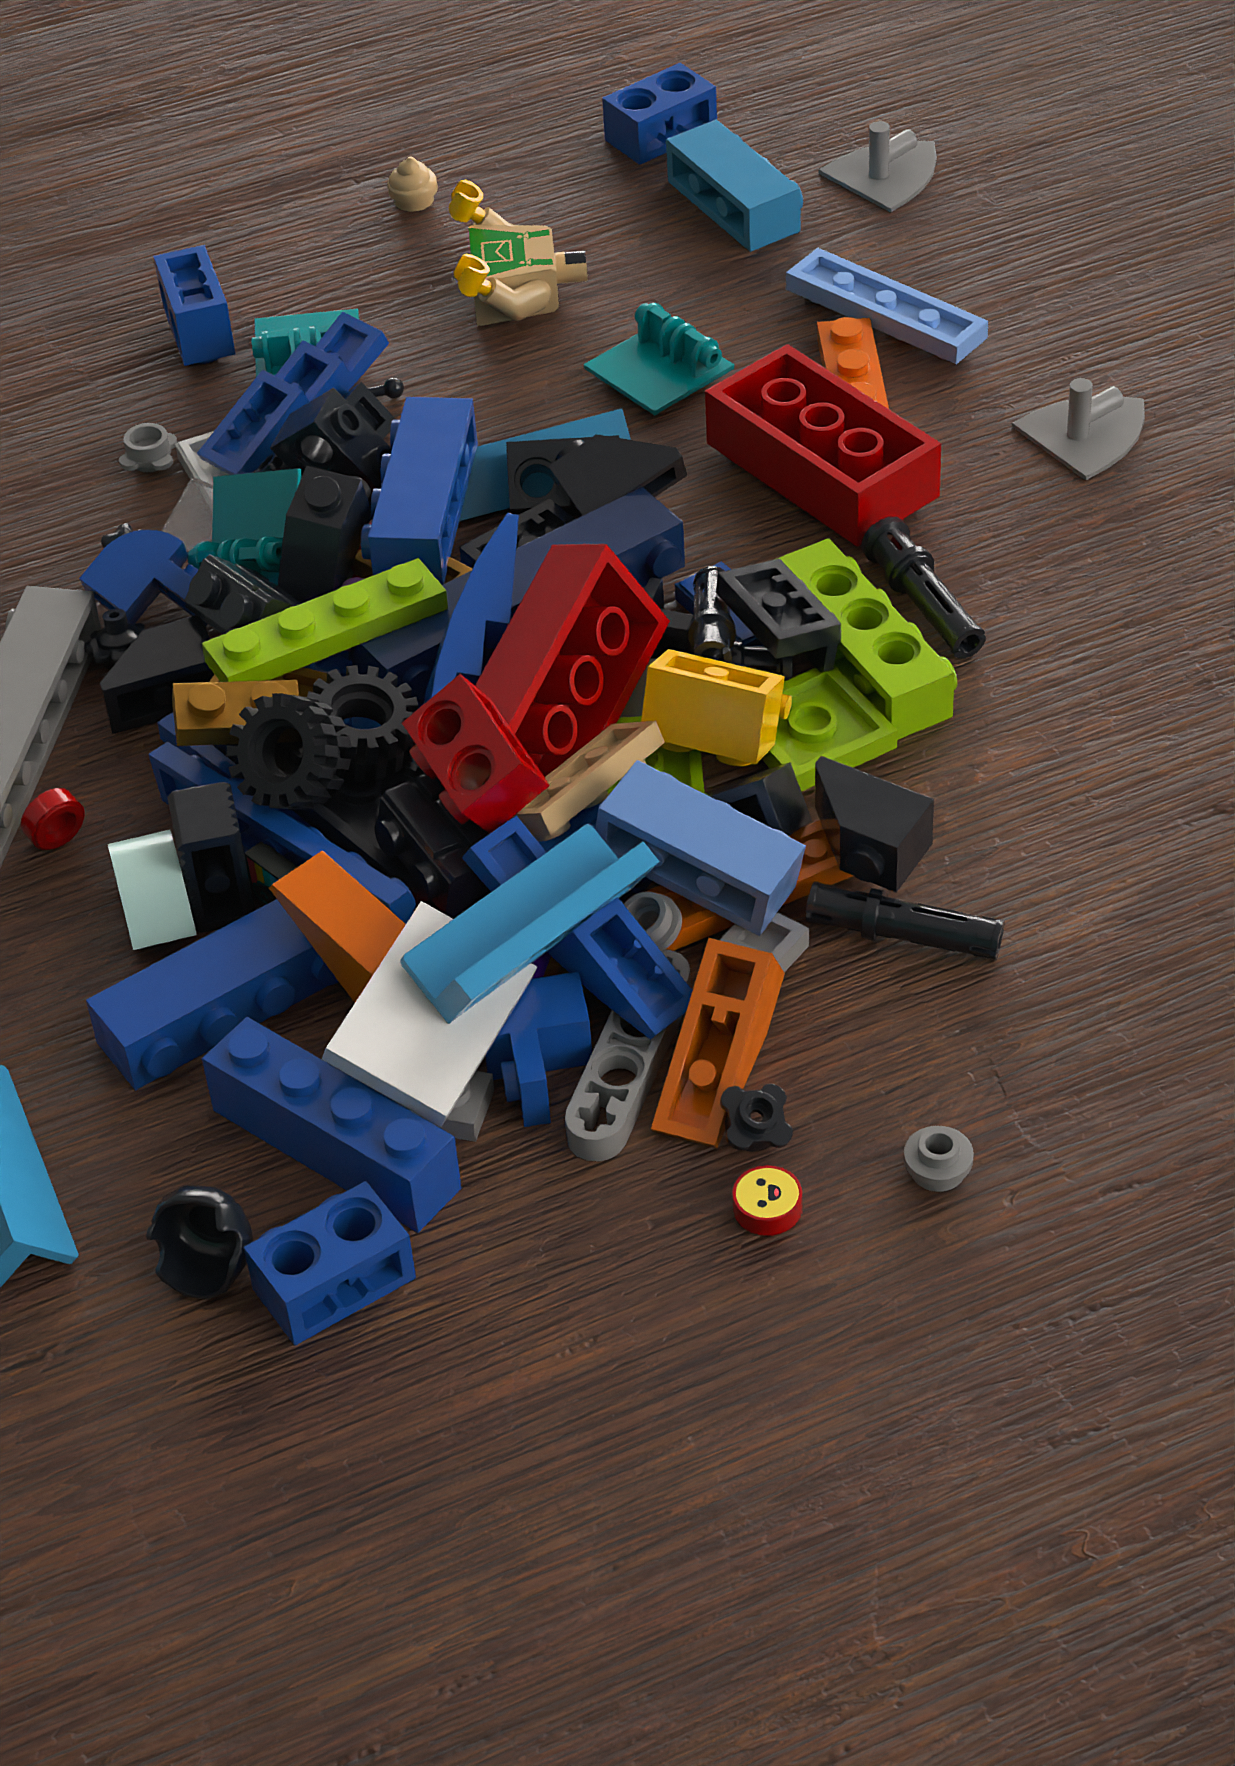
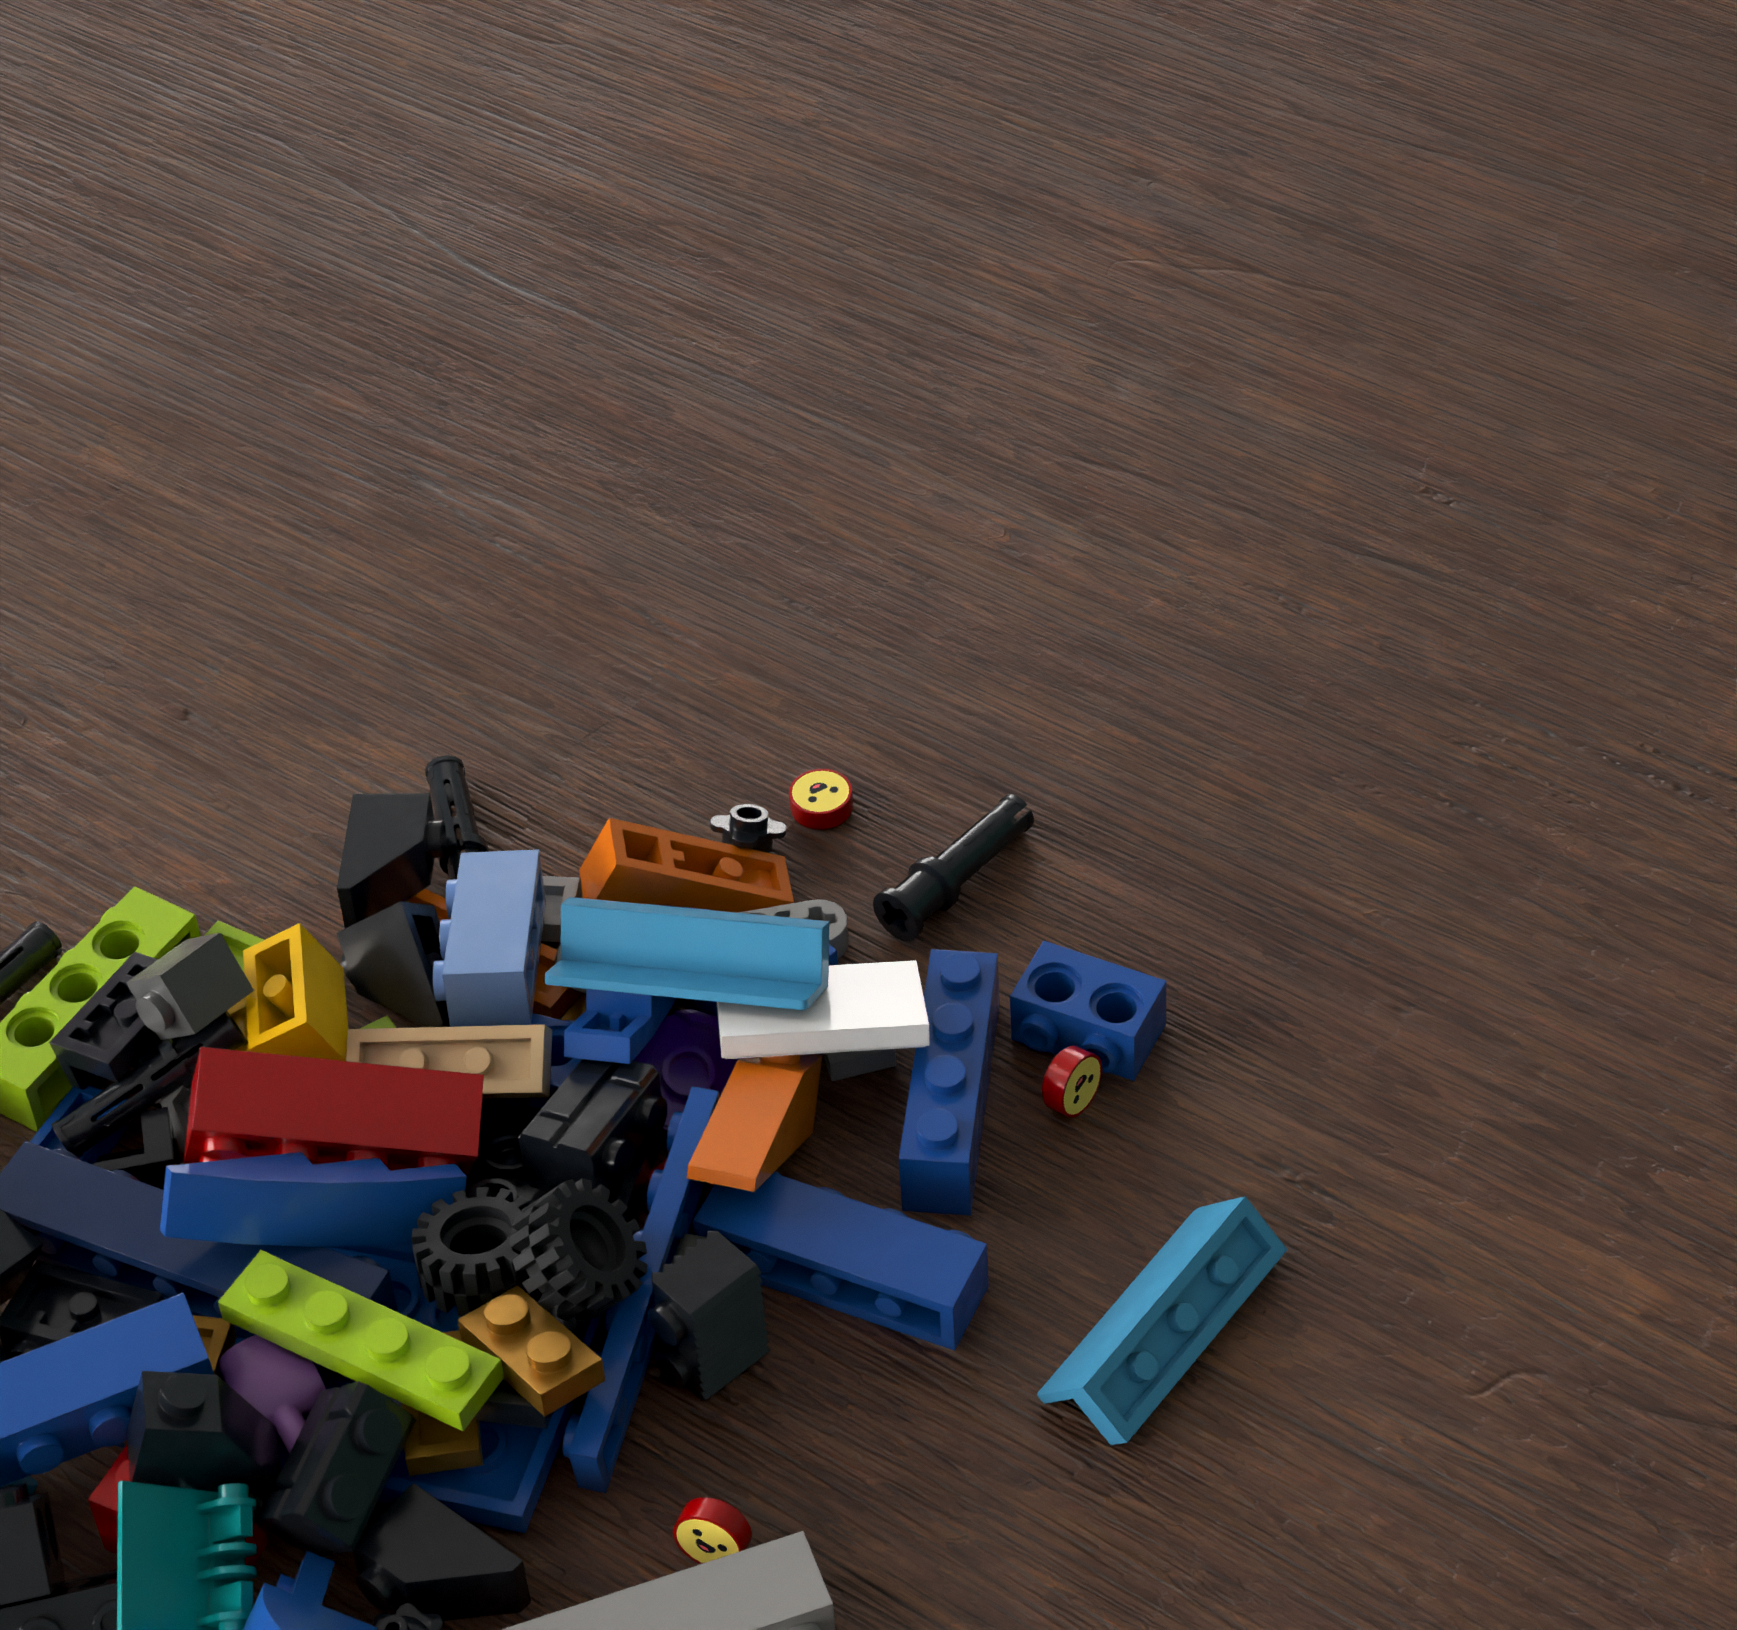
camera: 120 degrees left, 0 degrees up
(152, 889) = (761, 1358): light aqua brick -> none
(200, 1240) = (1133, 1094): black hair -> none
(263, 1206) = (1071, 1081): none -> tile
(480, 750) = (519, 1060): red brick -> none
(581, 1229) = (937, 880): none -> black pin
(744, 615) = (189, 987): none -> dark grey brick
(933, 1170) = (710, 719): light grey plate -> none

